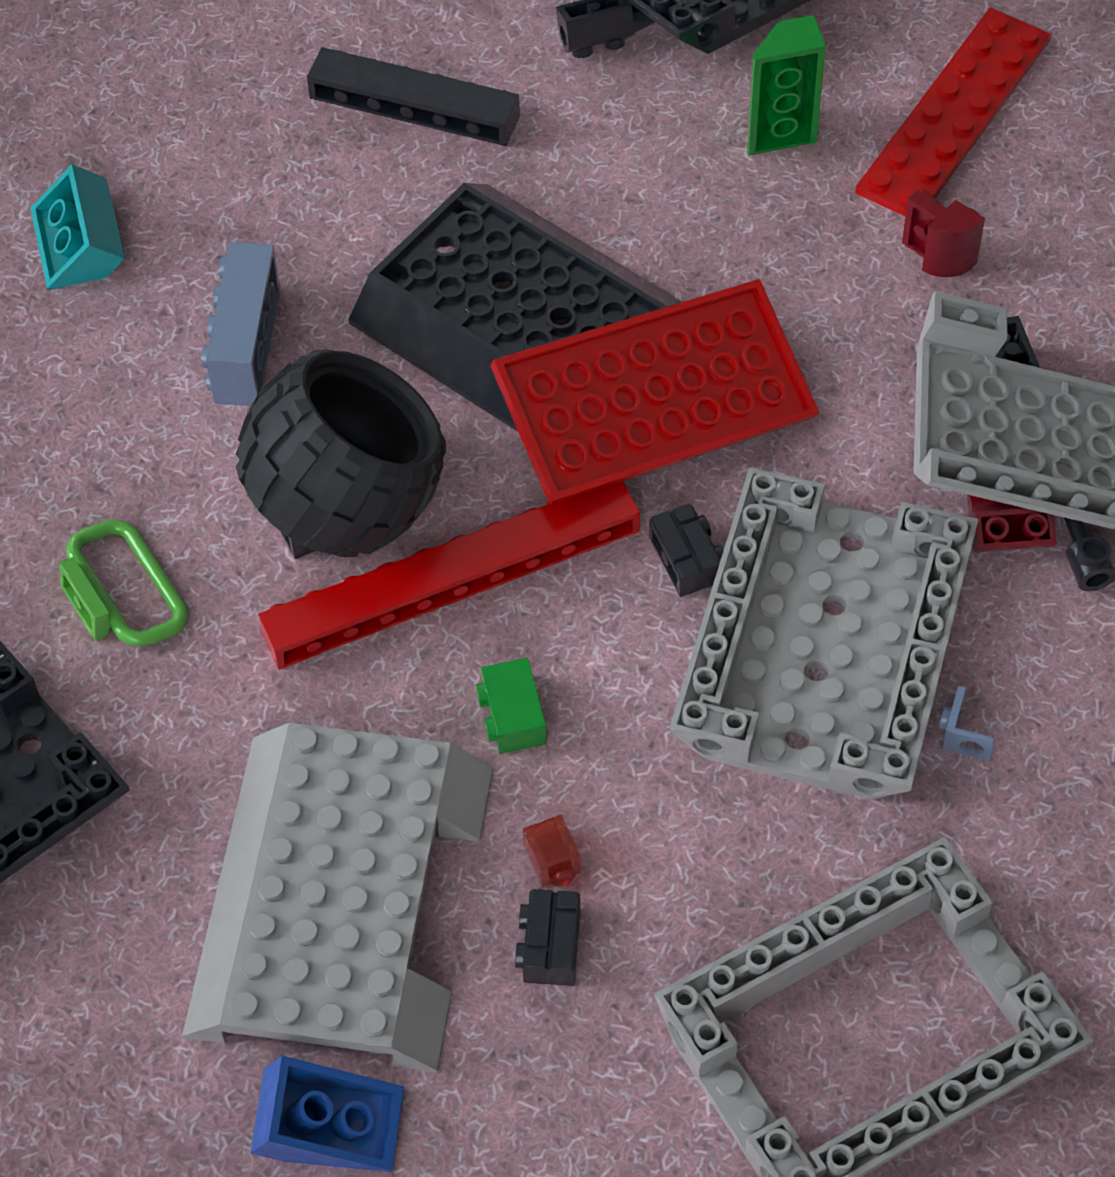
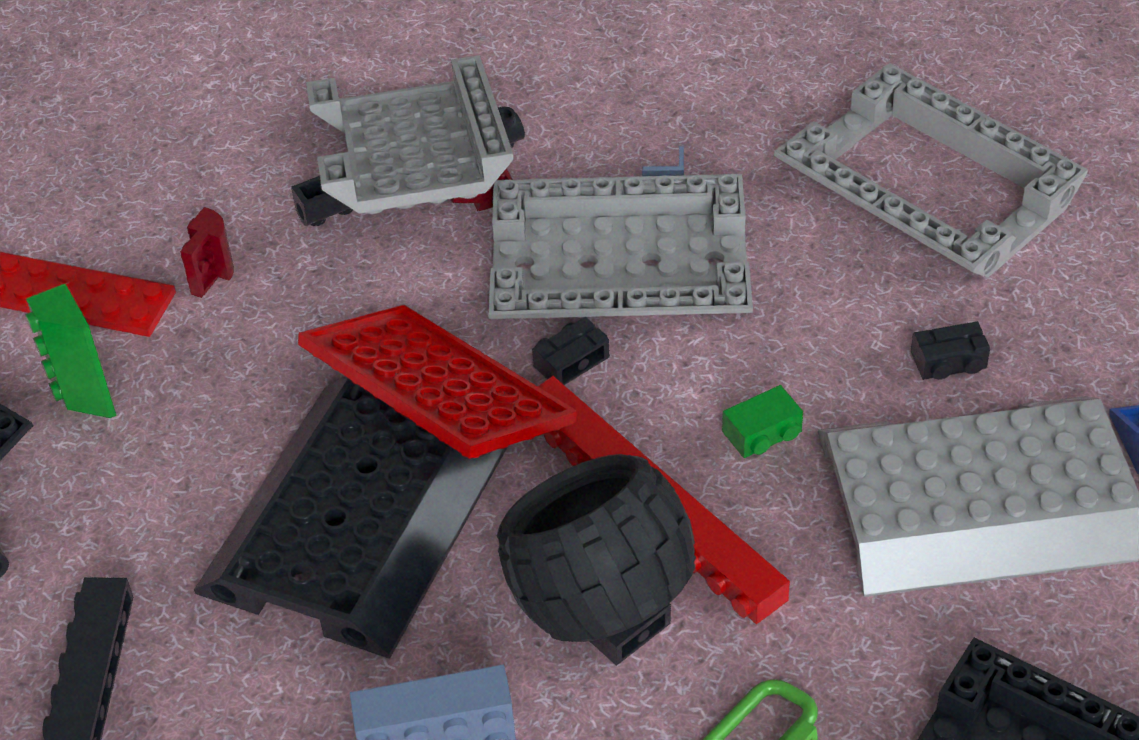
camera: 105 degrees left, 10 degrees down
(552, 851) = (879, 366): clear red brick -> none

